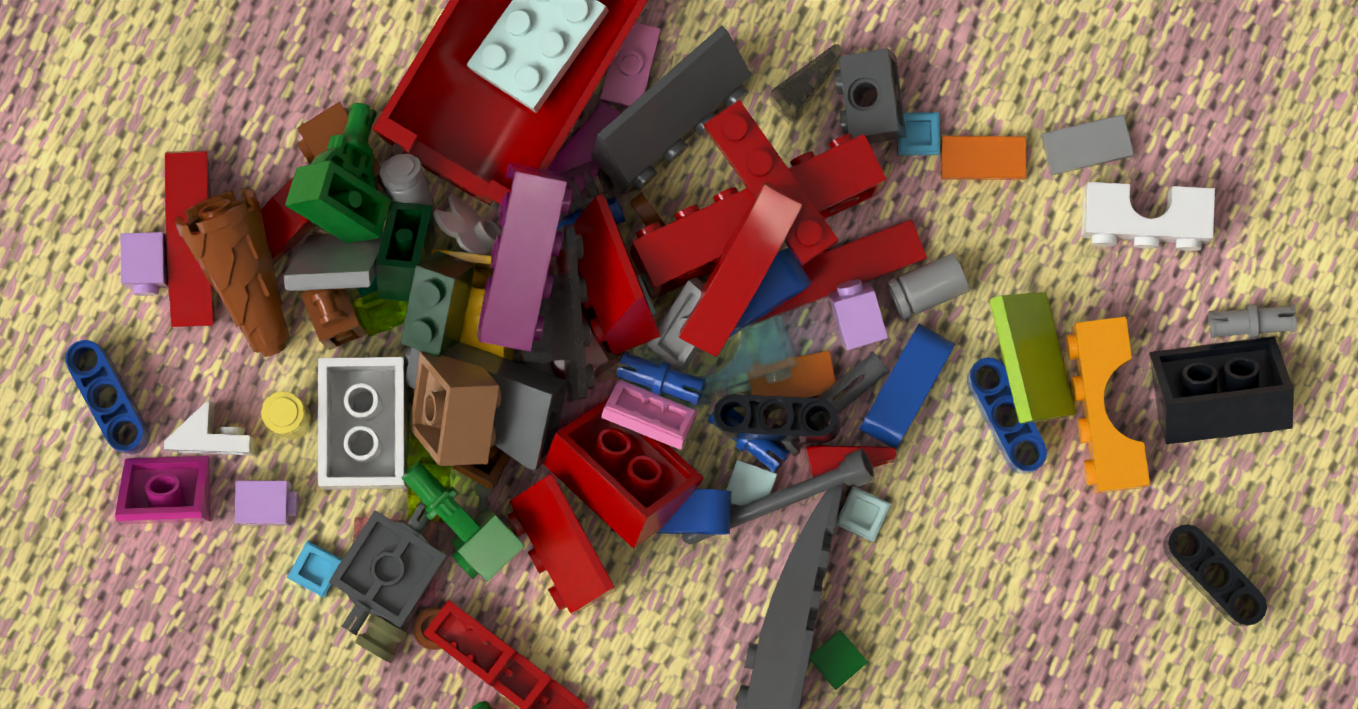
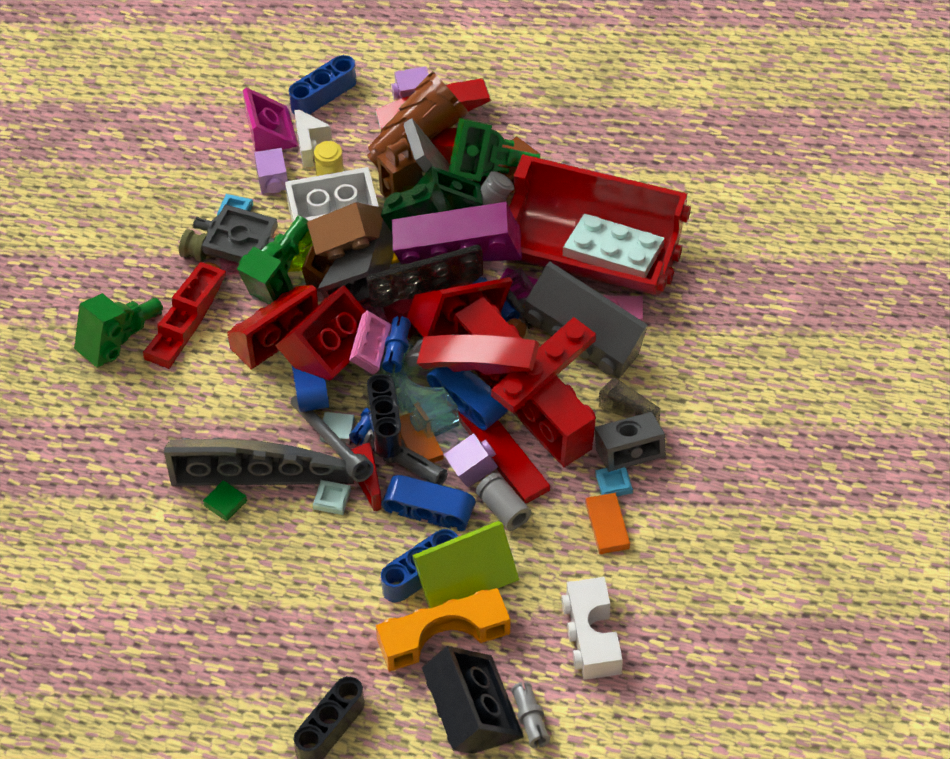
camera: 75 degrees right, 30 degrees down
(1087, 145) = (635, 586): light grey tile -> none

